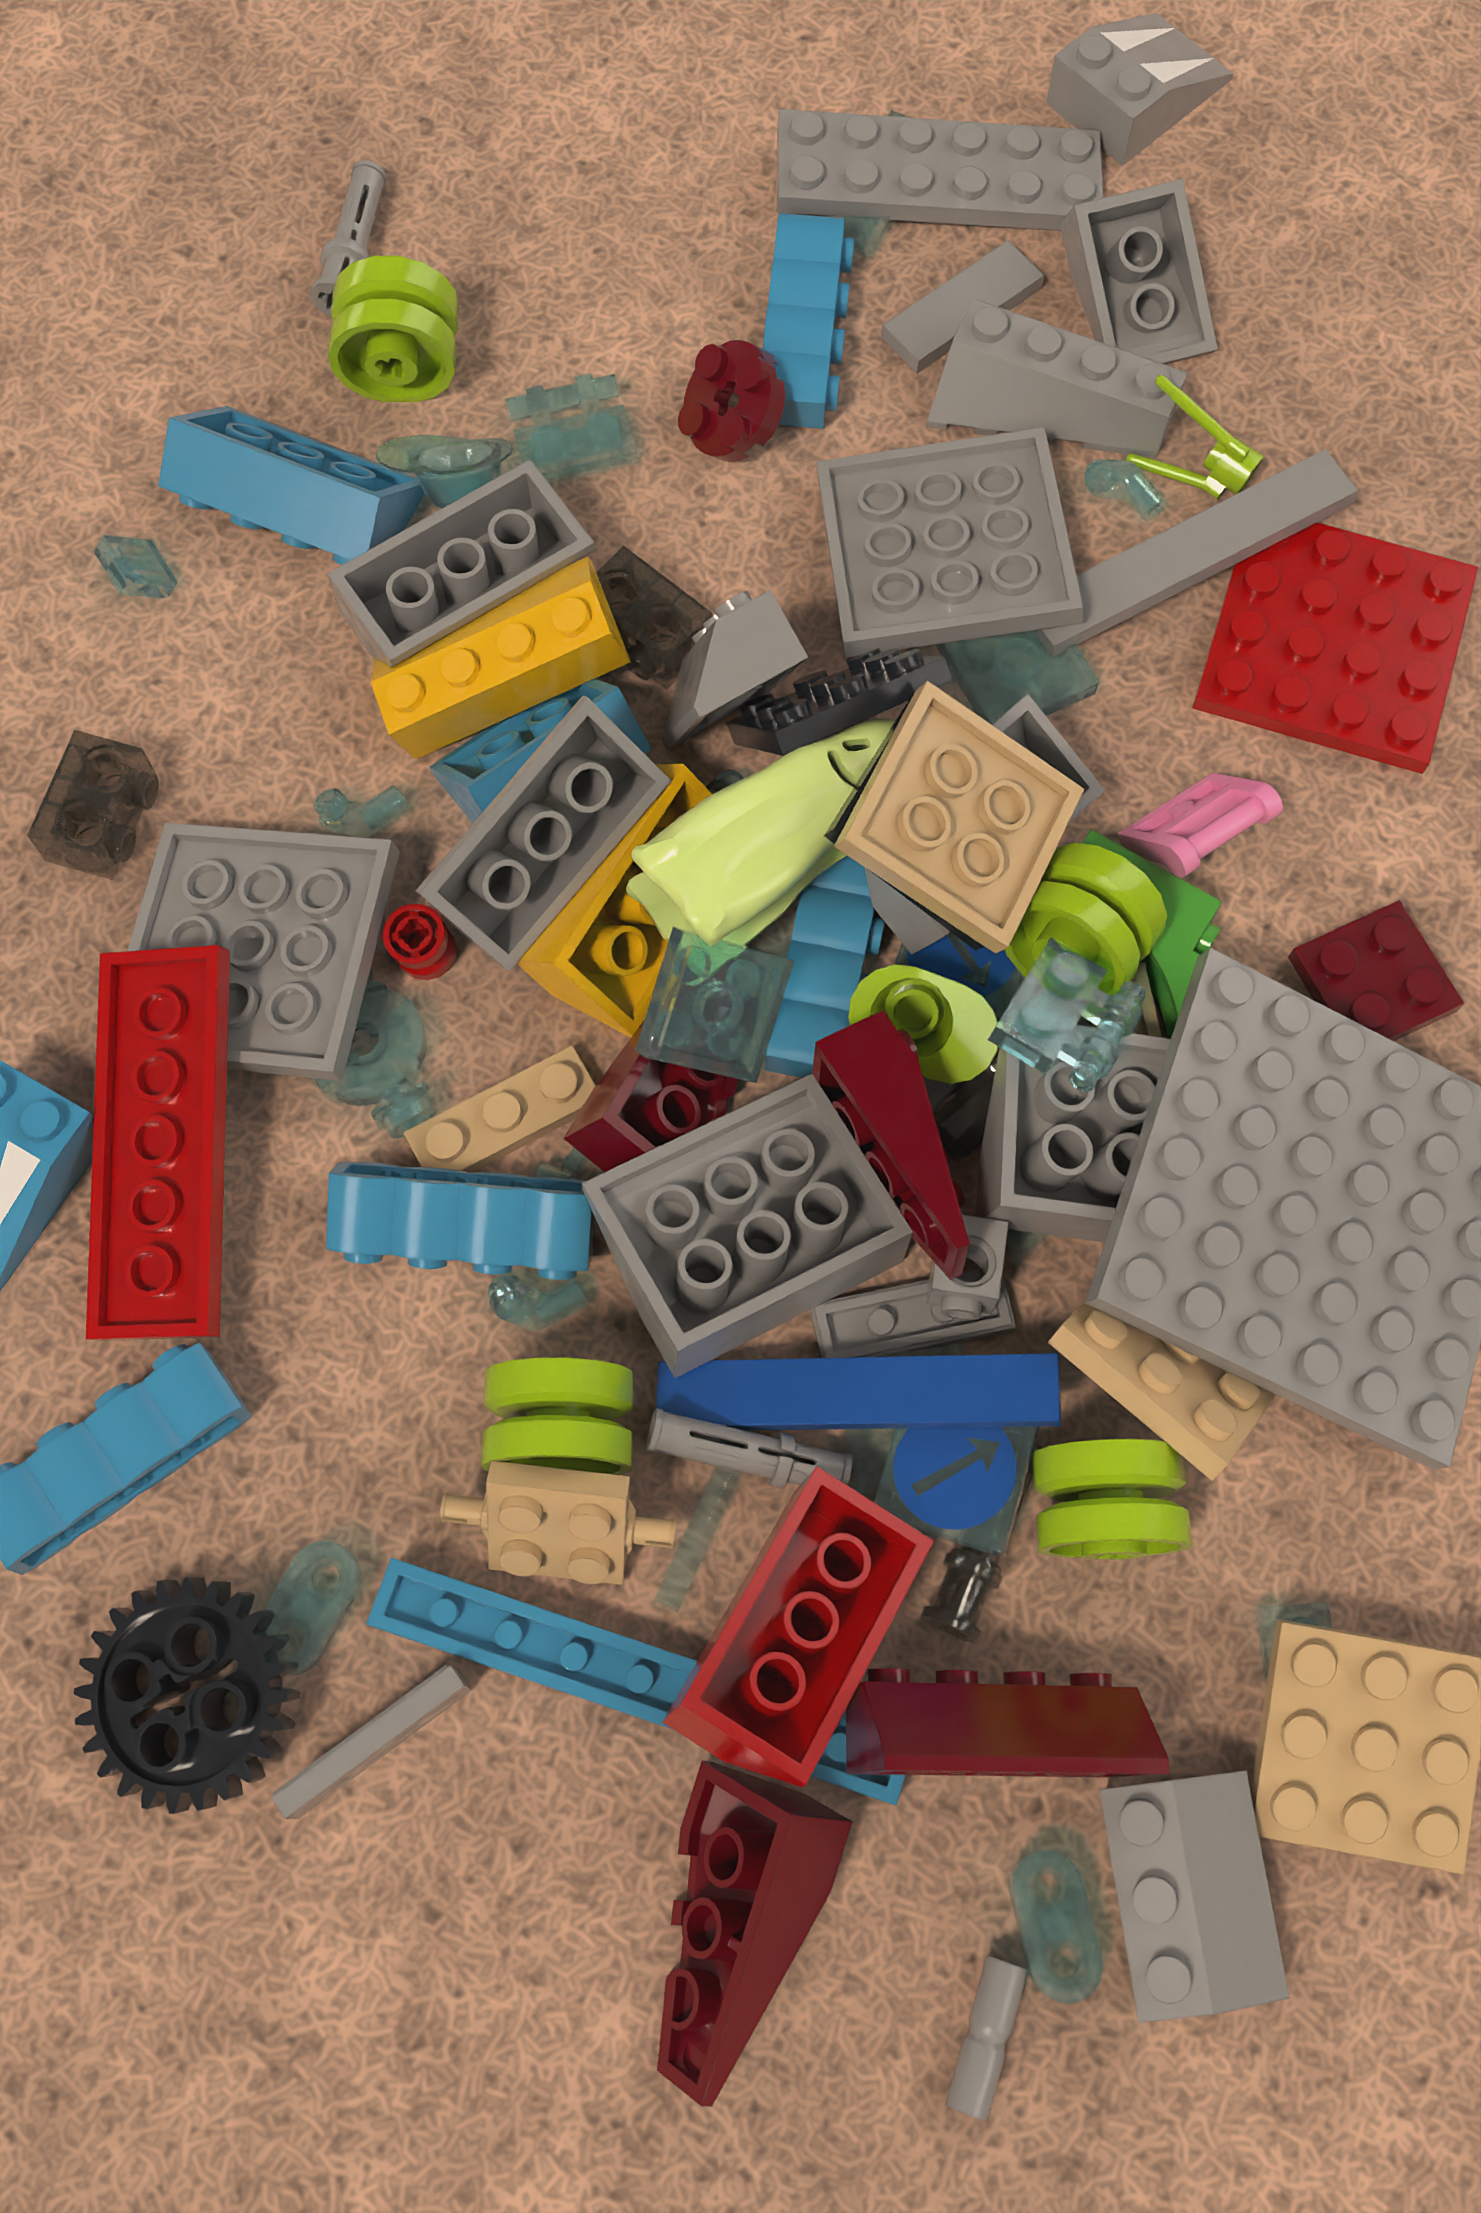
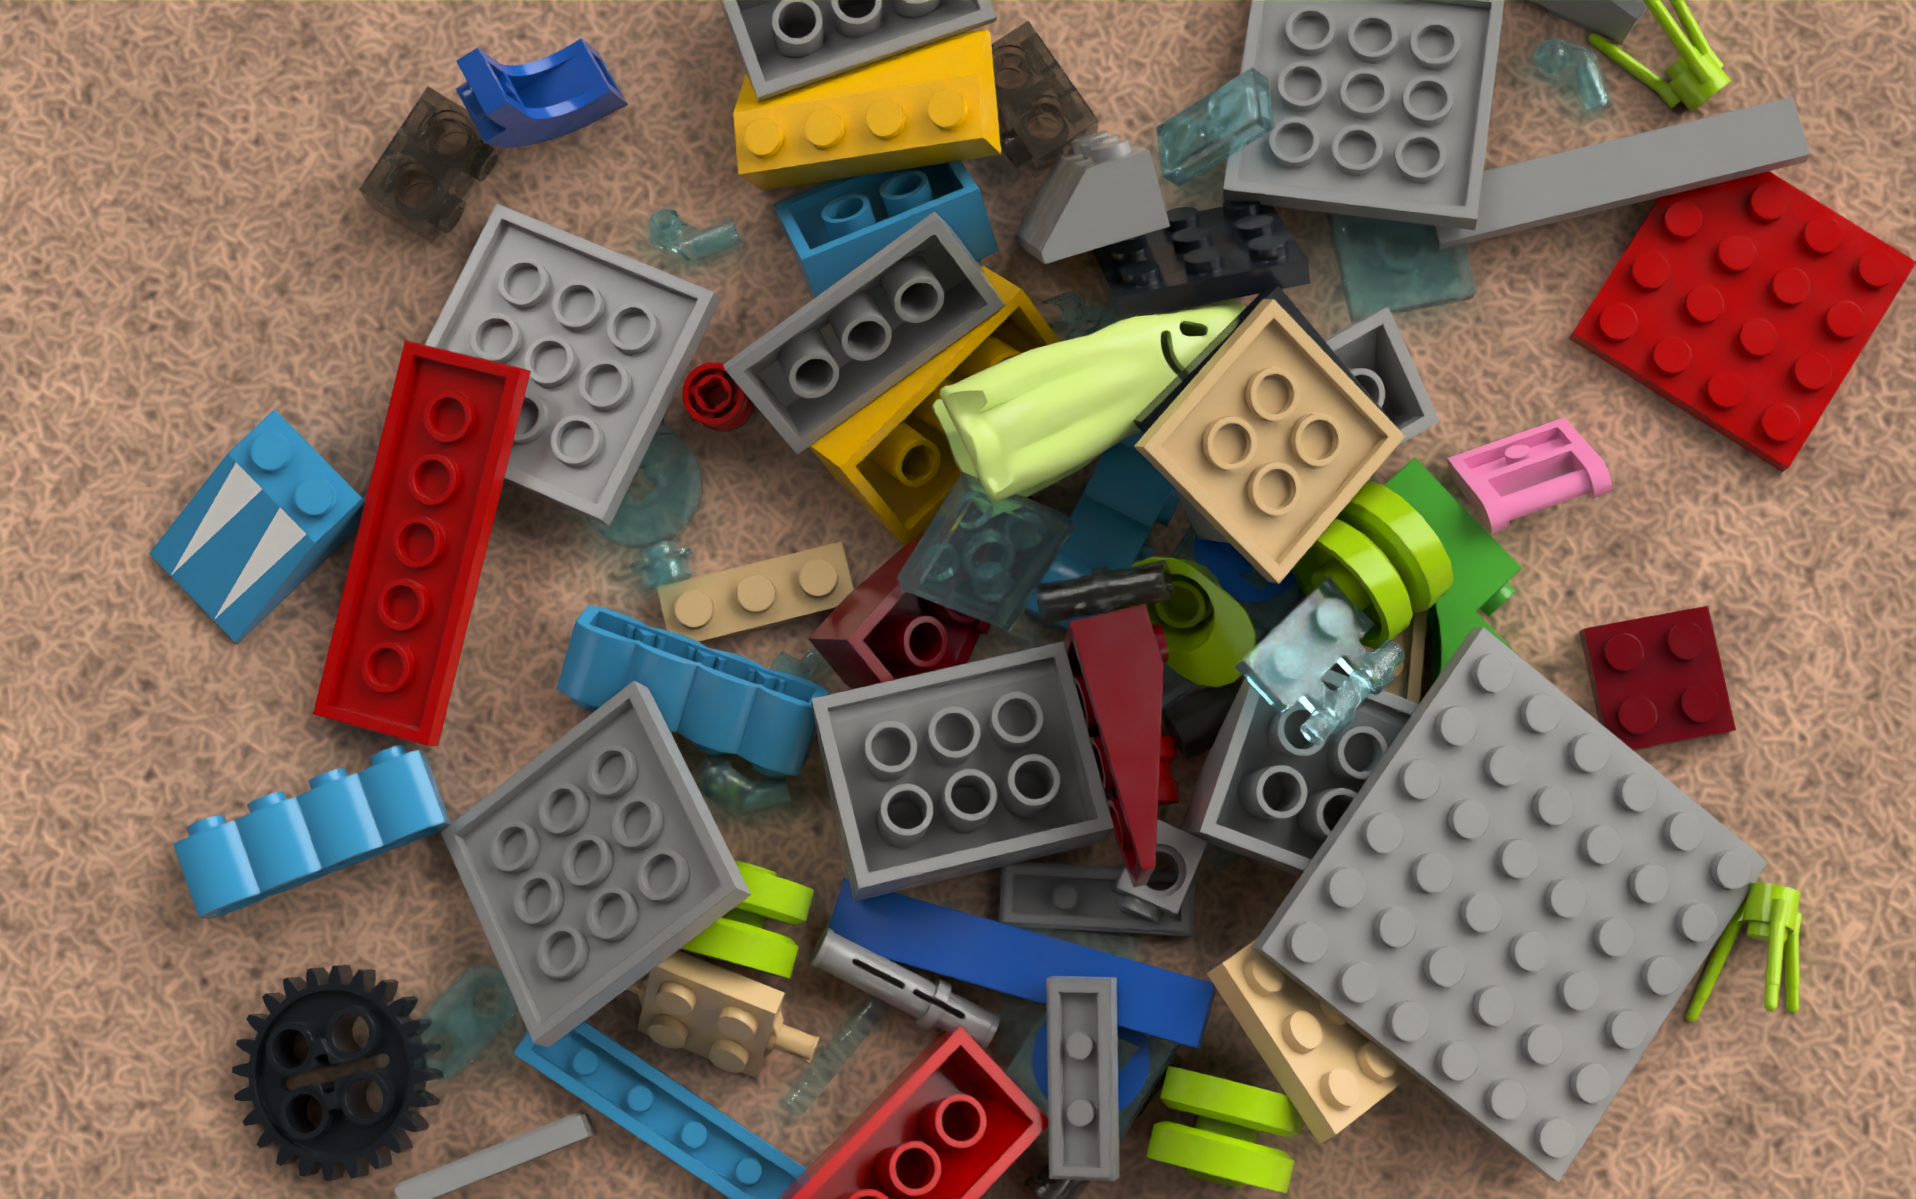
camera: 15 degrees right, 10 degrees up
(180, 720) = (537, 98): none -> blue arch
(403, 1404) = (593, 864): none -> light grey plate
(826, 587) = (1215, 127): none -> clear light blue plate
(838, 1011) = (1104, 591): none -> clear smoke pin
(954, 1485) = (1082, 1078): none -> light grey tile

